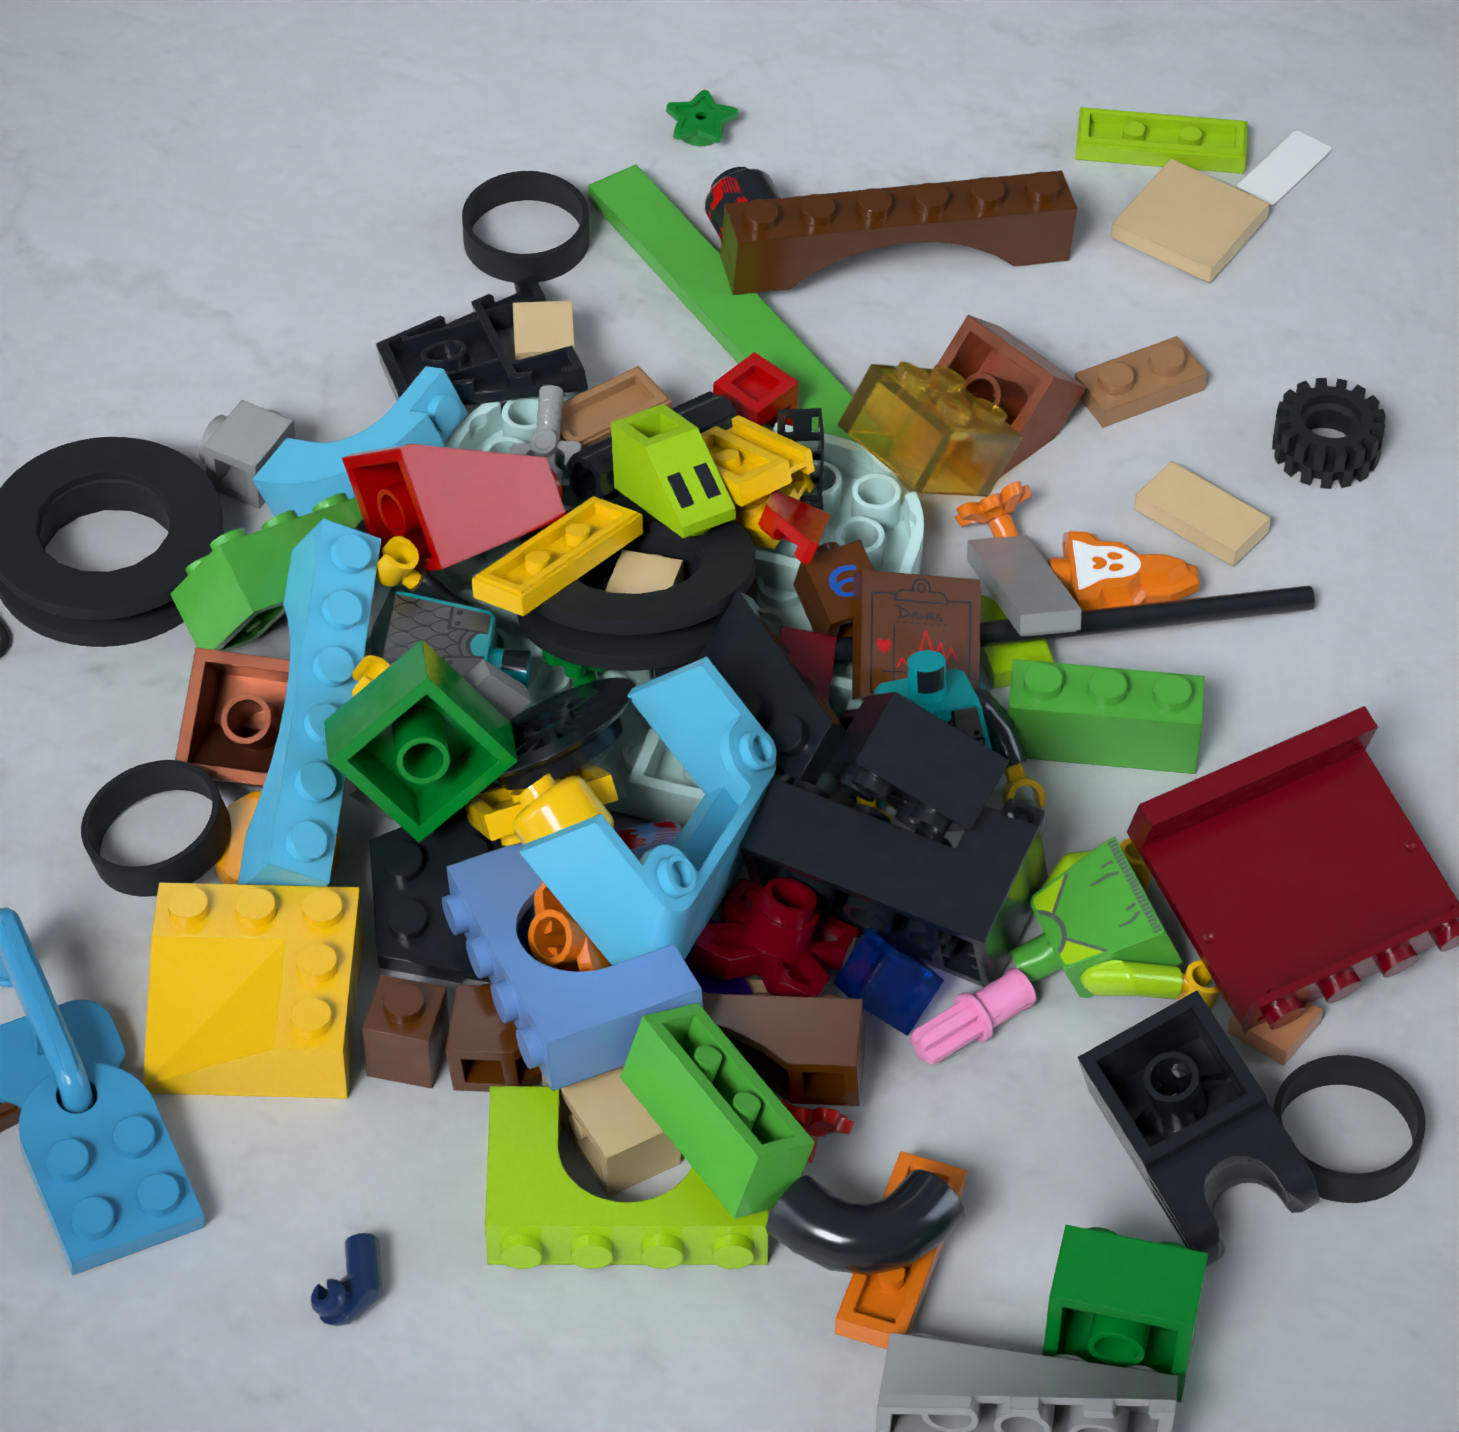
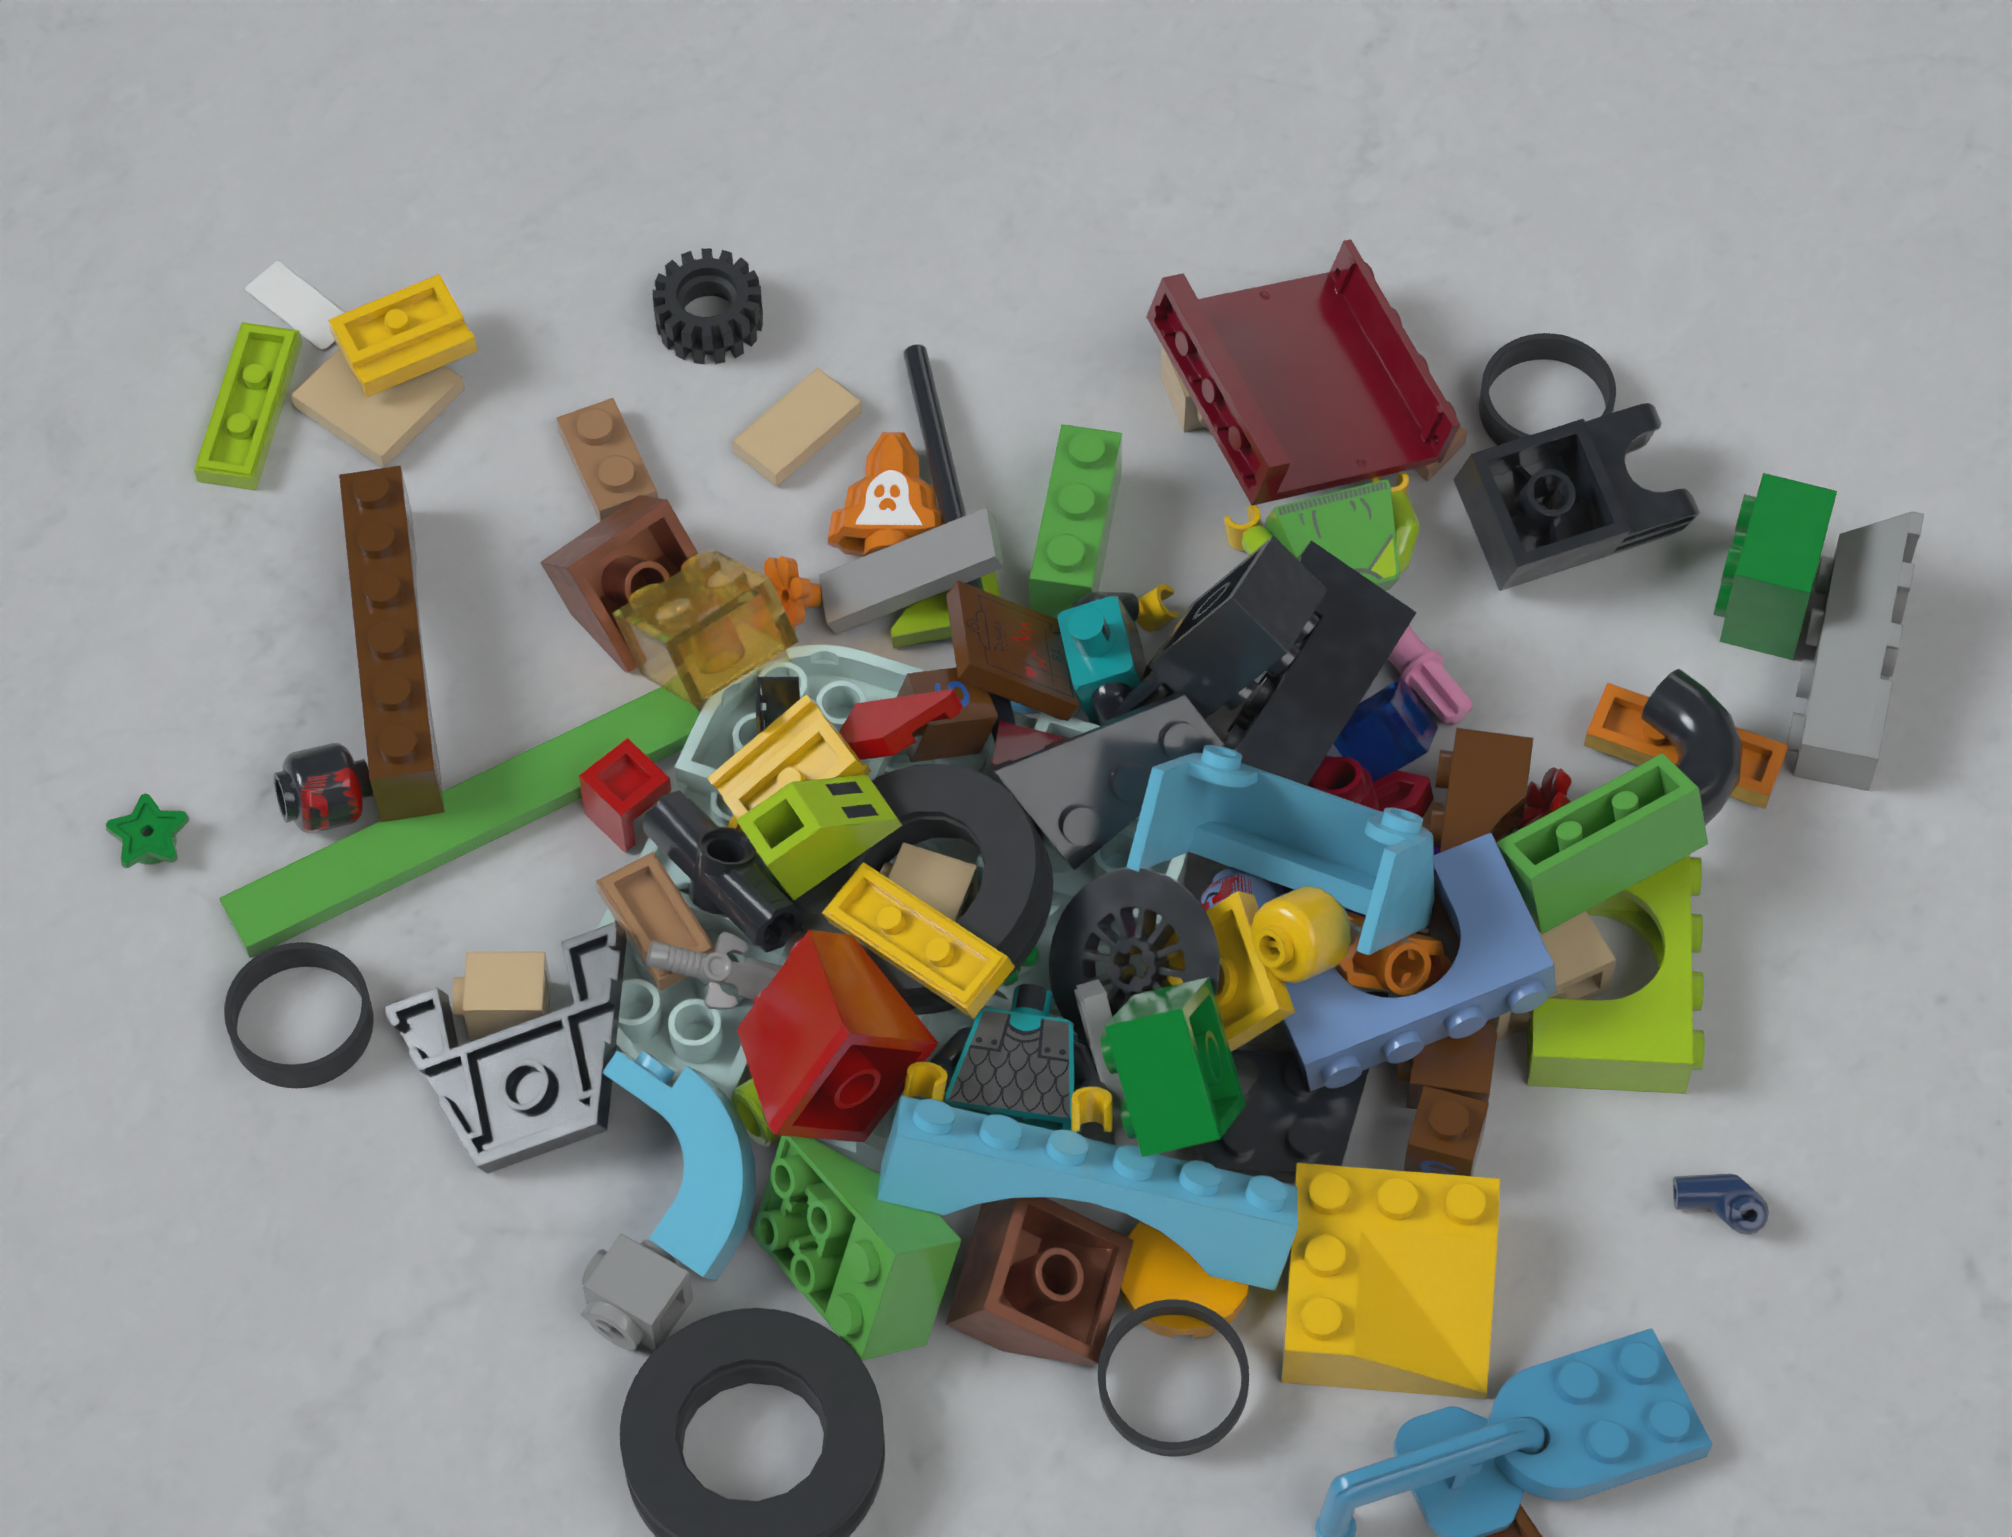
camera: 85 degrees left, 10 degrees up
(1238, 211) = (402, 335): none -> yellow plate

